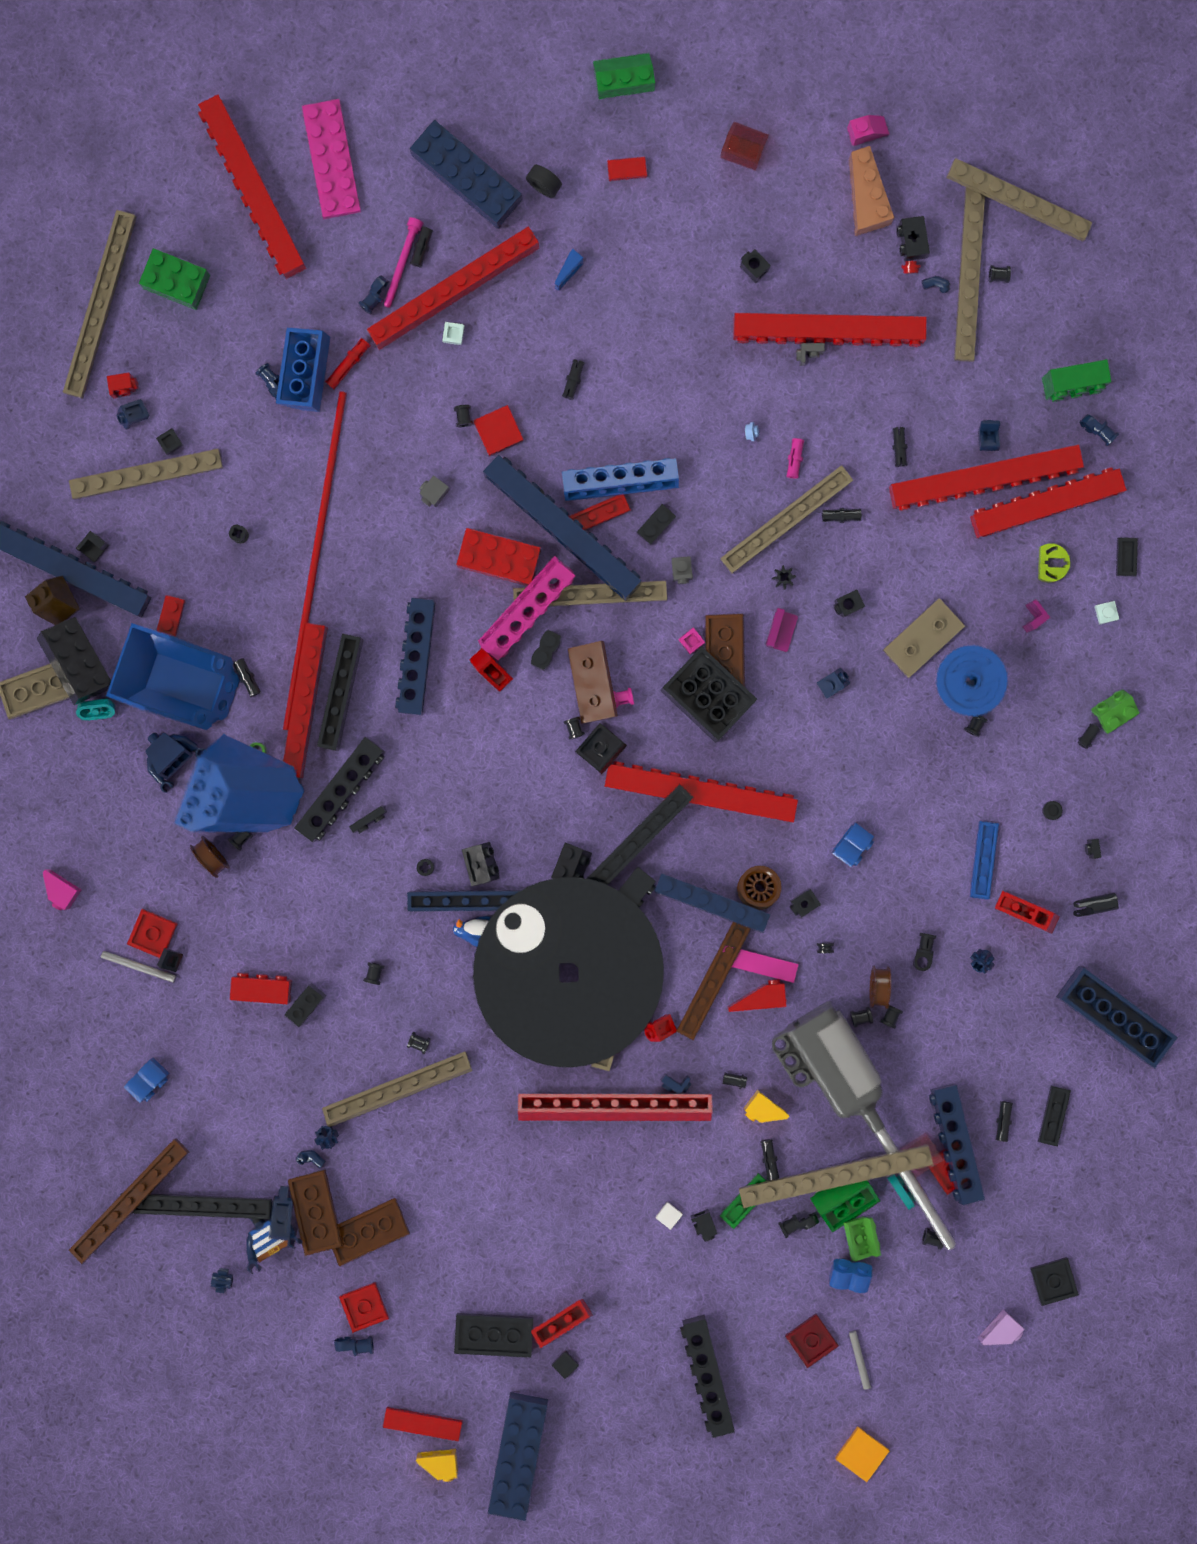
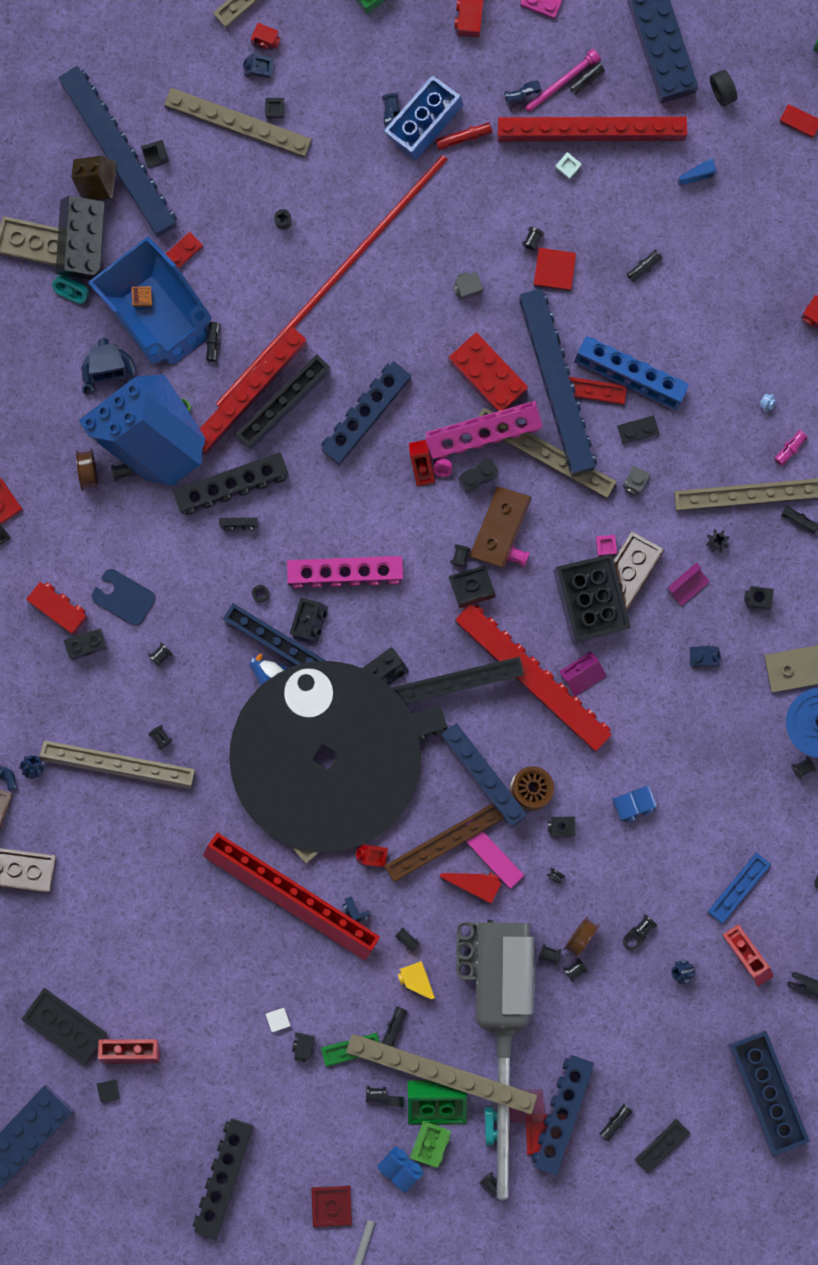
camera: 30 degrees right, 5 degrees down
(160, 677) = (141, 296): none -> tile
(316, 943) = (127, 600): none -> dark blue piece
(441, 827) = (296, 567): none -> dark pink brick
(511, 662) = (442, 467): none -> dark pink tile
(740, 762) = (583, 673): none -> magenta panel

